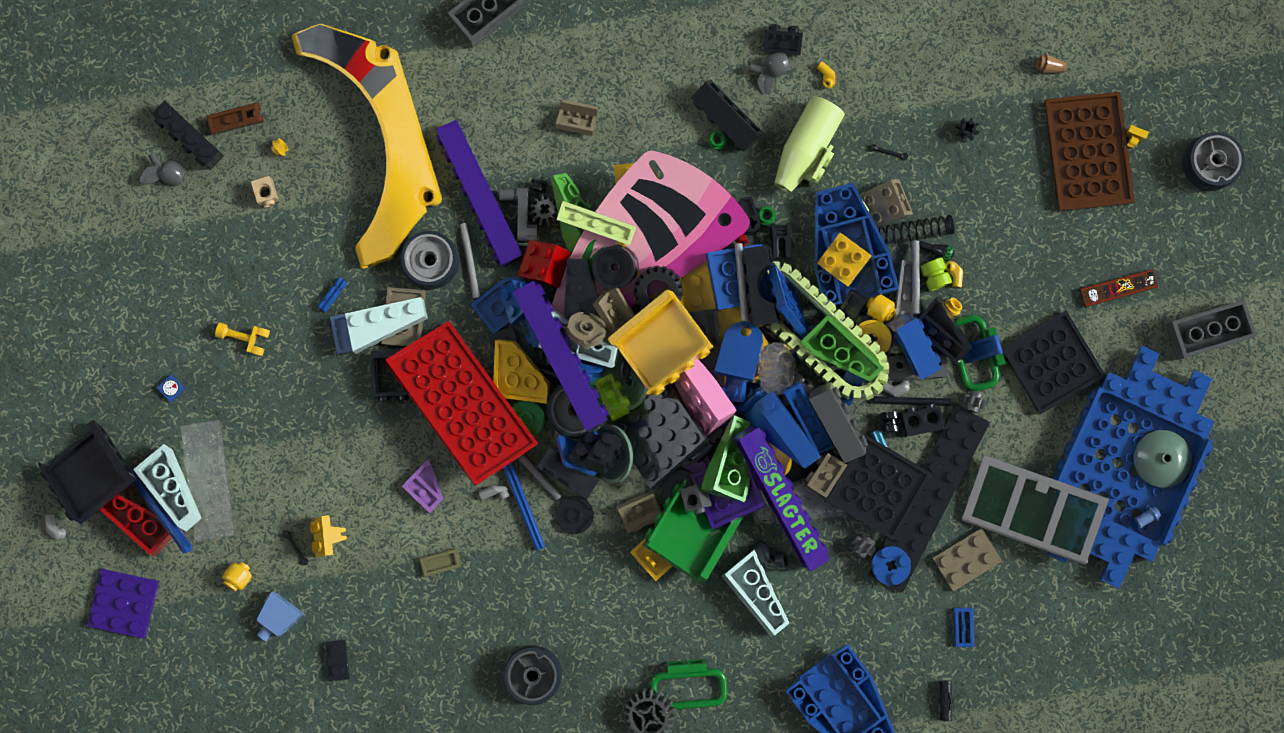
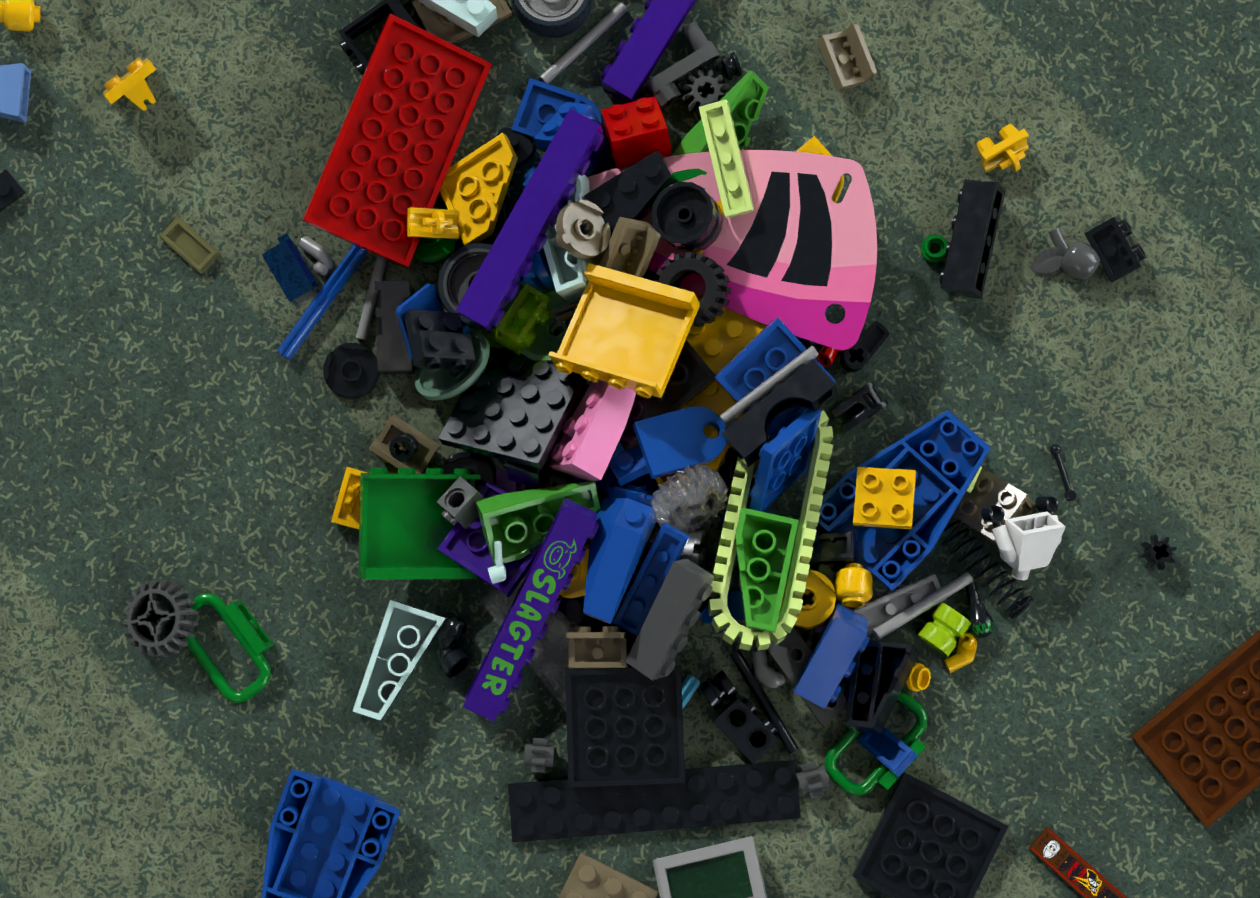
camera: 60 degrees right, 0 degrees up
(286, 534) = (89, 81): black hinge -> none
(424, 487) = (269, 167): medium lavender wing -> none
(492, 513) = (290, 268): none -> clear blue panel
(523, 413) = (432, 223): none -> yellow hips
(536, 659) = (141, 448): dark grey wheel -> none
(645, 512) = (412, 446): none -> black bush
(690, 65) = (1005, 153): none -> yellow hips
(749, 502) = (498, 572): none -> light aqua hand
(770, 211) = (885, 363): green plate -> none
(807, 145) = (1001, 363): yellowish green piece -> none
(828, 75) = (1109, 335): yellow arm -> none
(900, 560) = (524, 817): blue plate -> none
(916, 195) = (1029, 539): none -> white torso

